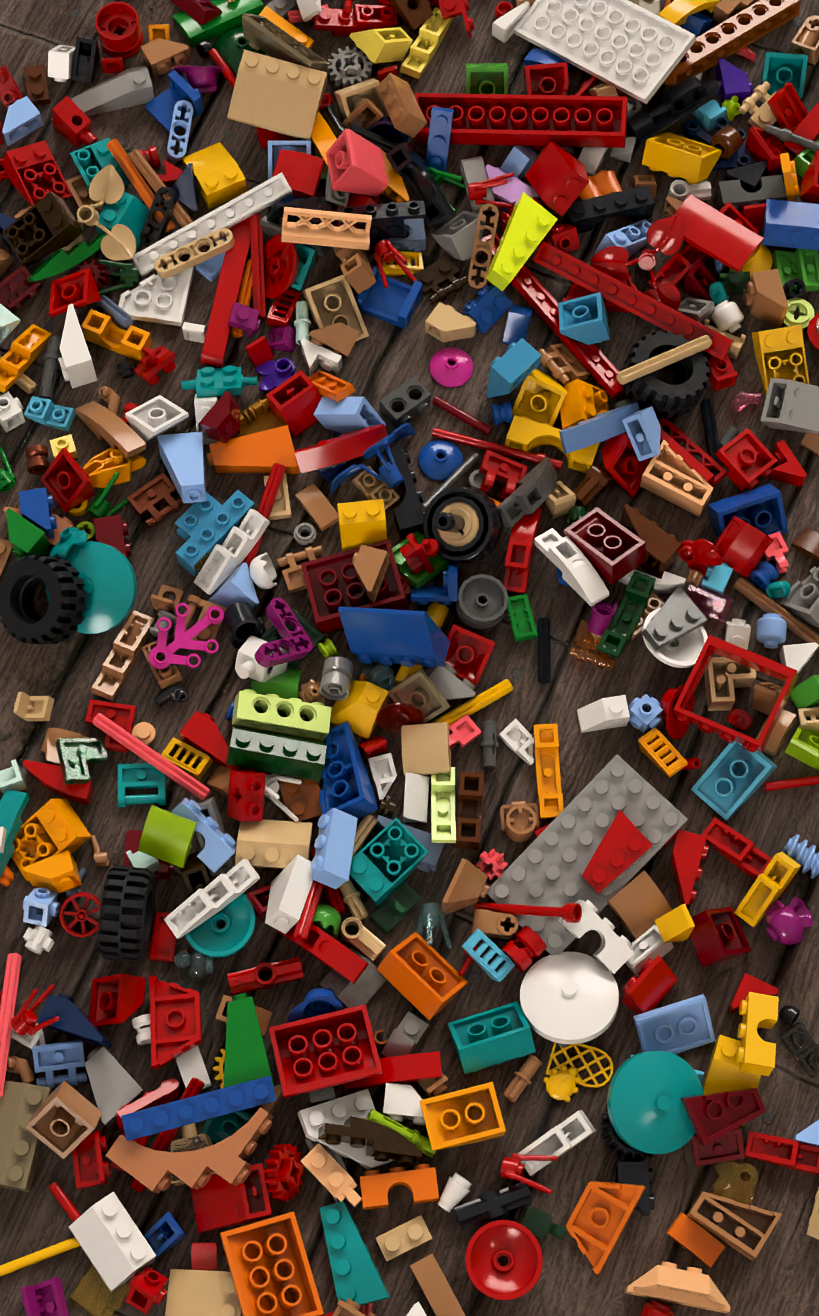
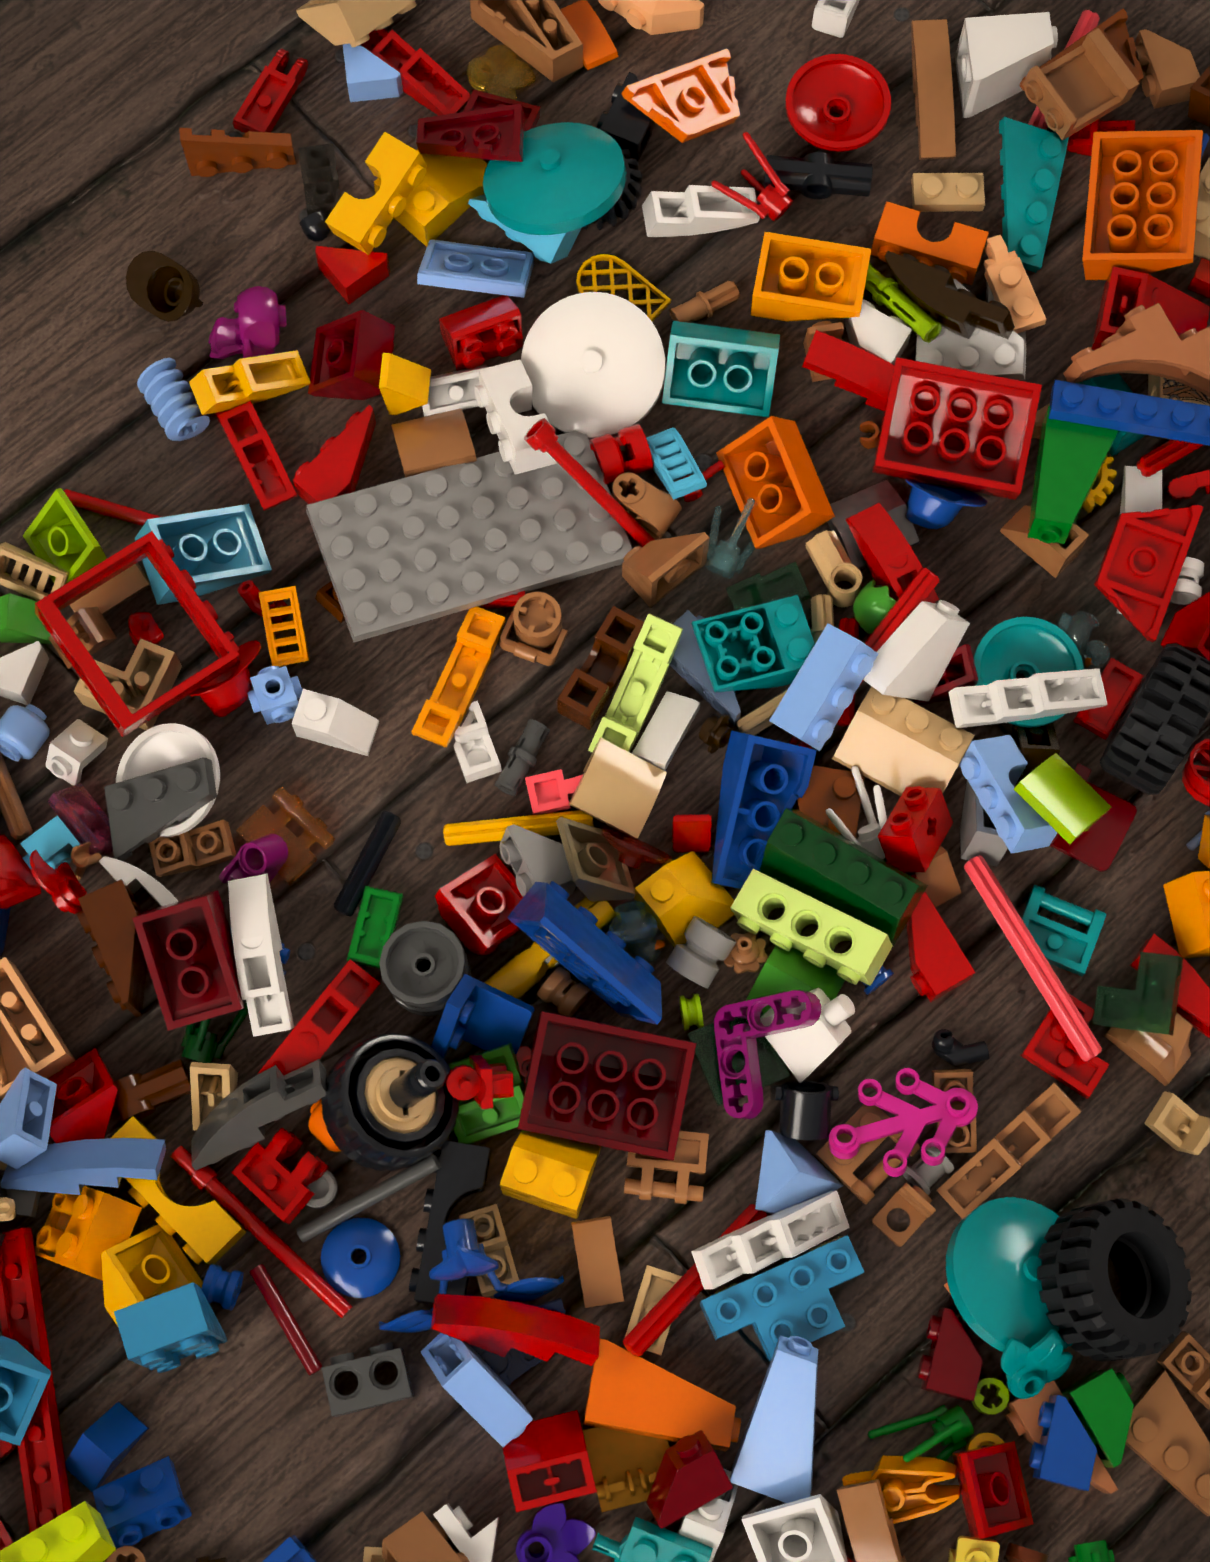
camera: 155 degrees left, 5 degrees up
(100, 858) = (1160, 849): medium nougat hand -> none
(142, 860) = (1115, 795): light aqua panel -> none
(144, 732) = (1025, 1009): light nougat plate -> none
(153, 494) = (855, 1410): copper plate -> none
(202, 767) = (987, 935): yellow slope -> none
(249, 980) = (1014, 581): red piece -> none
(263, 571) = (737, 1185): white hair -> none
(284, 1172) = (1073, 314): red gear -> none
(305, 527) = (644, 1214): light grey plate -> none
(331, 386) = (481, 1462): orange tile -> none
(371, 568) = (576, 1079): medium nougat slope -> none
(383, 773) = (696, 786): white slope -> none
(405, 1037) = (834, 420): light grey slope -> none
(448, 324) = (222, 1499): tan slope -> none
(449, 375) = (277, 1426): dark pink dish -> none
(454, 1191) = (858, 212): white cone -> none
(494, 858) = (606, 584): coral gear -> none
(539, 1224) = (769, 133): clear green plate -> none
(562, 1083) = (654, 278): yellow piece -> none
(563, 364) = (67, 1328): medium nougat plate -> none
(616, 853) = (429, 503): red wing -> none
(628, 615) = (221, 842): dark green slope -> none

